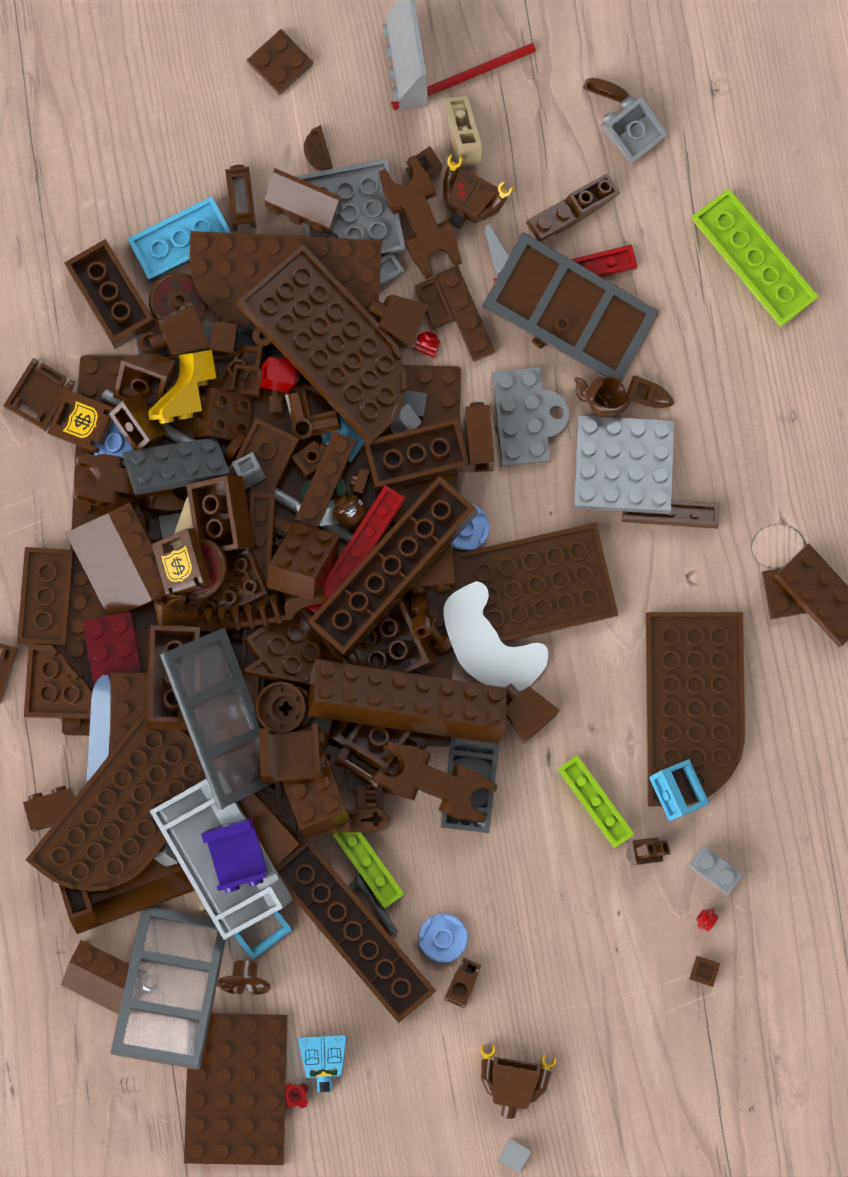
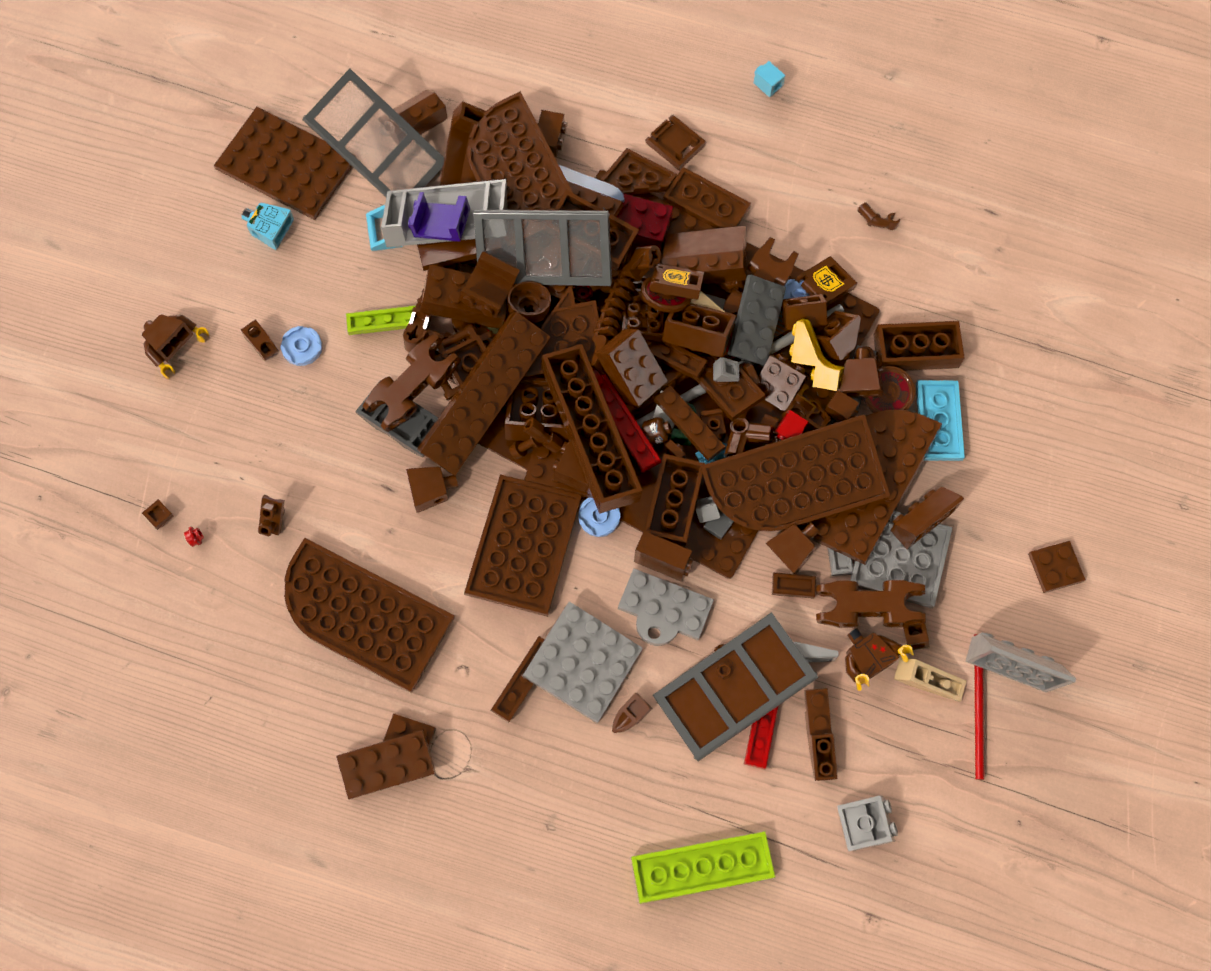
camera: 115 degrees right, 10 degrees down
(40, 391) = (867, 270): reddish brown container -> none
(240, 196) = (954, 479): reddish brown window -> none
(244, 976) = (355, 198): reddish brown wheel -> none
(301, 1090) = (251, 193): red plate -> none
(316, 150) = (967, 558): reddish brown tile -> none
(354, 932) = (340, 283): reddish brown brick -> none
(360, 884) = (342, 312): dark grey piece -> none
(427, 344) = (762, 562): red plate -> none
(465, 314) = (779, 604): reddish brown plate -> none
(479, 645) = (497, 476): white sticker -> none
(514, 1155) = (118, 316): light grey slope -> none
(595, 801) = (332, 501): lime plate -> none
(605, 89) = (912, 820): reddish brown tile -> none
(605, 395) = (647, 674): reddish brown hair -> none
(670, 795) = (300, 553): medium azure tile -> none
(715, 870) = (225, 560): light grey brick -> none

